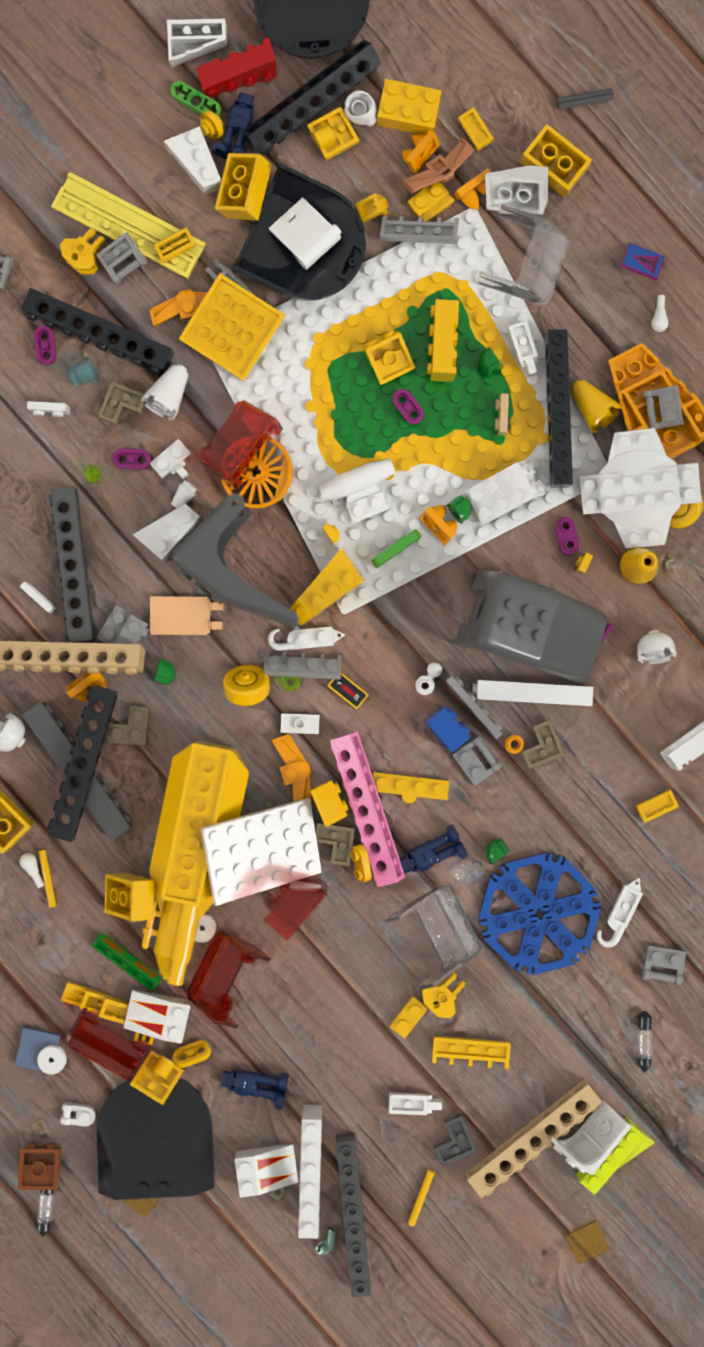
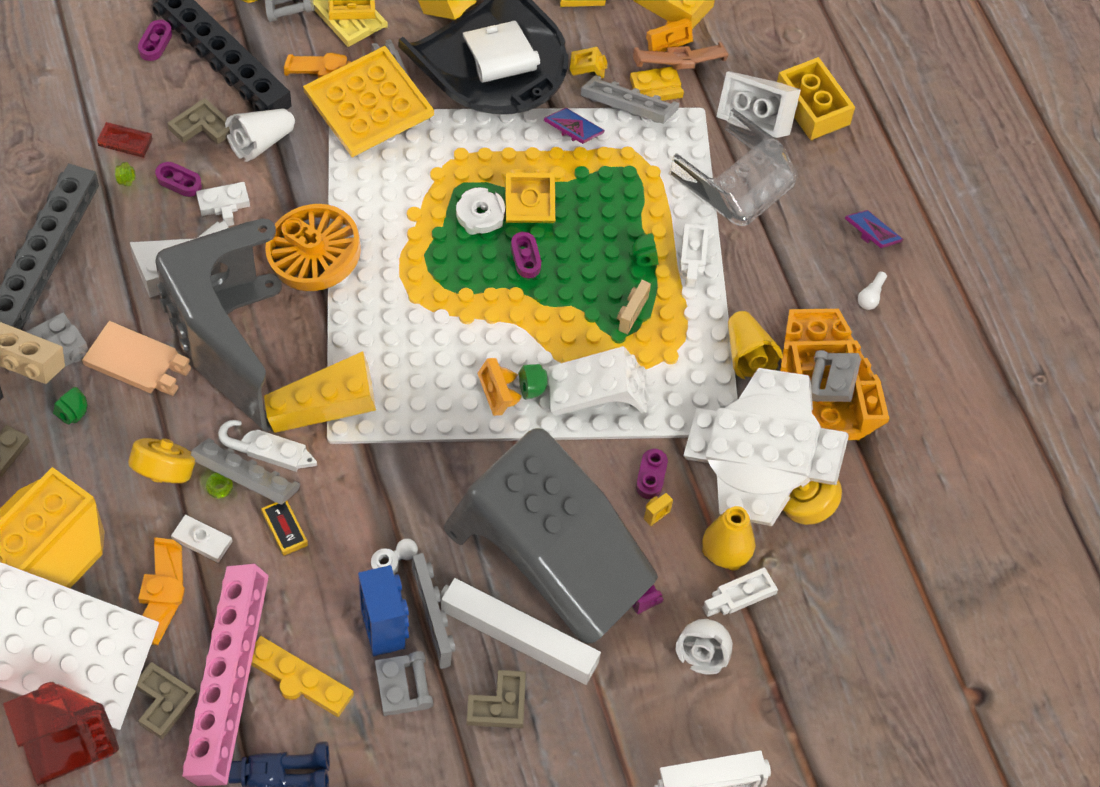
camera: 20 degrees right, 30 degrees down
(43, 408) = (119, 94): white plate -> none
(74, 444) = (124, 139): none -> clear red plate
(83, 372) = (179, 78): clear light blue piece -> none
(238, 442) = (309, 199): clear red windscreen -> none
(329, 802) = (181, 640): yellow slope -> none
(331, 532) = (363, 339): yellow plate -> none
(360, 488) = (423, 312): white plate -> none
(361, 863) = (181, 728): yellow plate -> none
(370, 385) = (480, 223): none -> white plate
(391, 277) = (574, 125): none -> piece
(396, 548) = (431, 390): bright green beam -> none
(444, 340) = (600, 208): yellow wedge -> none
(467, 192) = (703, 88): light orange tile -> none
(475, 129) = (739, 41): yellow plate -> none
(520, 746) = (463, 677): light orange plate -> none
(558, 408) = (703, 329): black brick -> none
(585, 98) = (875, 63): dark grey axle -> none
(662, 598) = (741, 593): none -> white hinge

